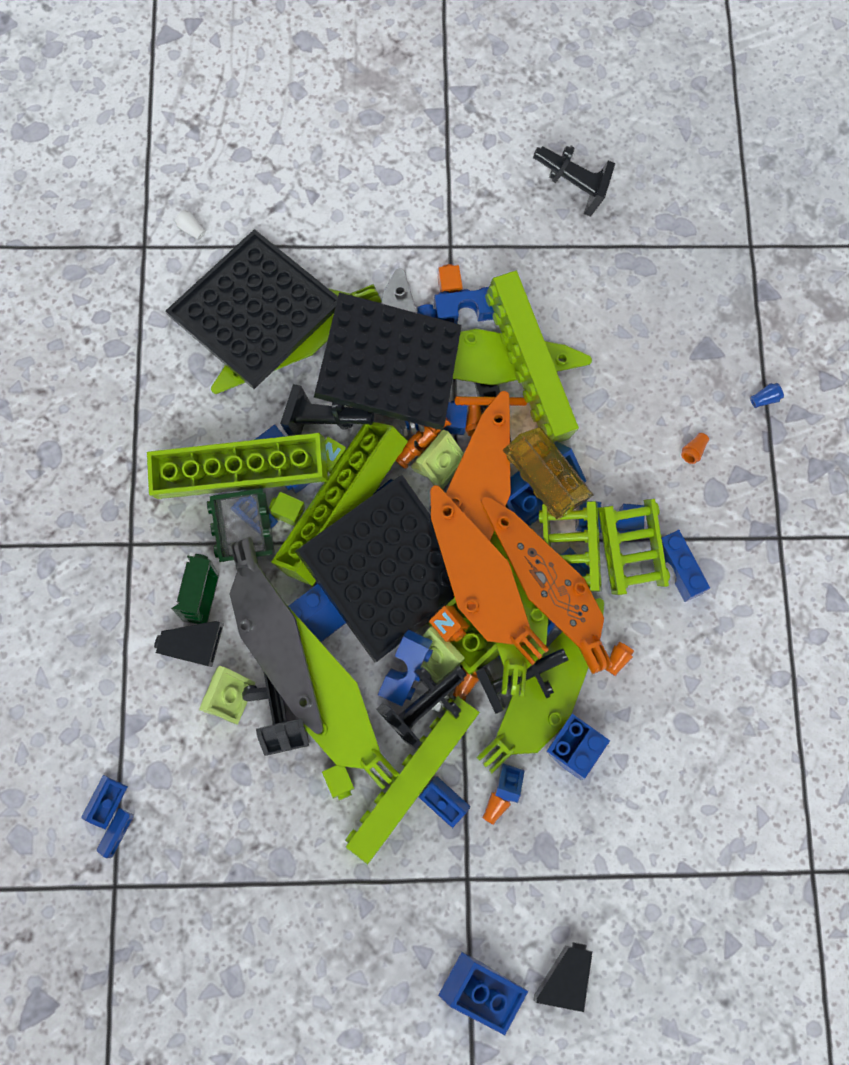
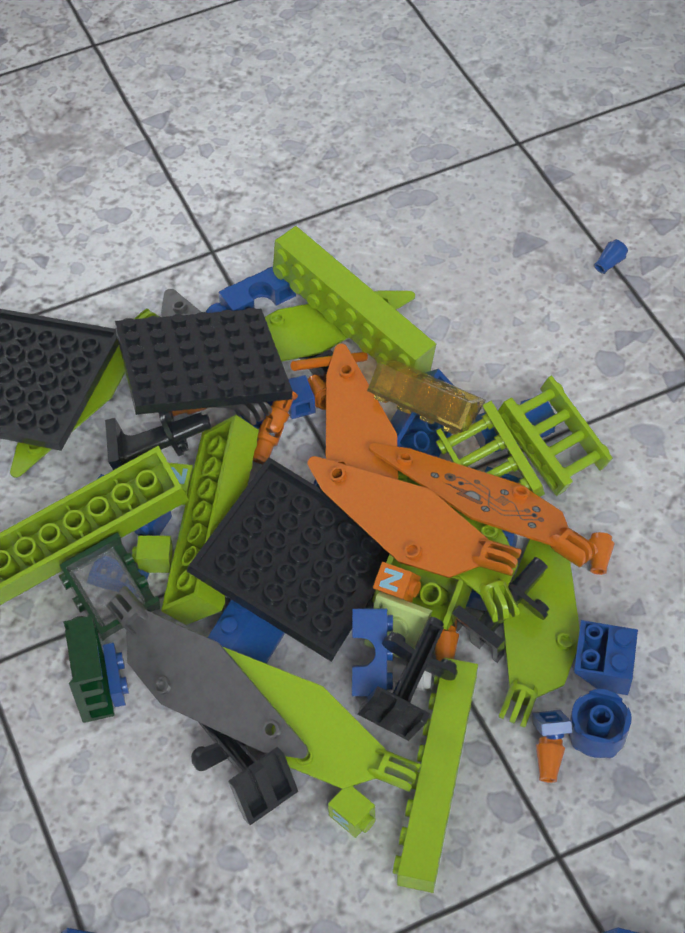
camera: 15 degrees left, 20 degrees down
(191, 643) = (104, 736): black slope -> none
(216, 604) = (117, 684): none -> blue plate
(225, 695) = (171, 773): yellowish green bracket -> none
(439, 460) = (301, 437): yellowish green bracket -> none
(444, 802) = (487, 784): blue slope -> none
(449, 278) = (226, 274): orange brick -> none
(557, 798) = (599, 724): none -> blue brick
(592, 183) = (333, 140): black piece -> none
(689, 576) = (632, 445): blue arch -> none
(694, 449) = (565, 331): orange cone -> none

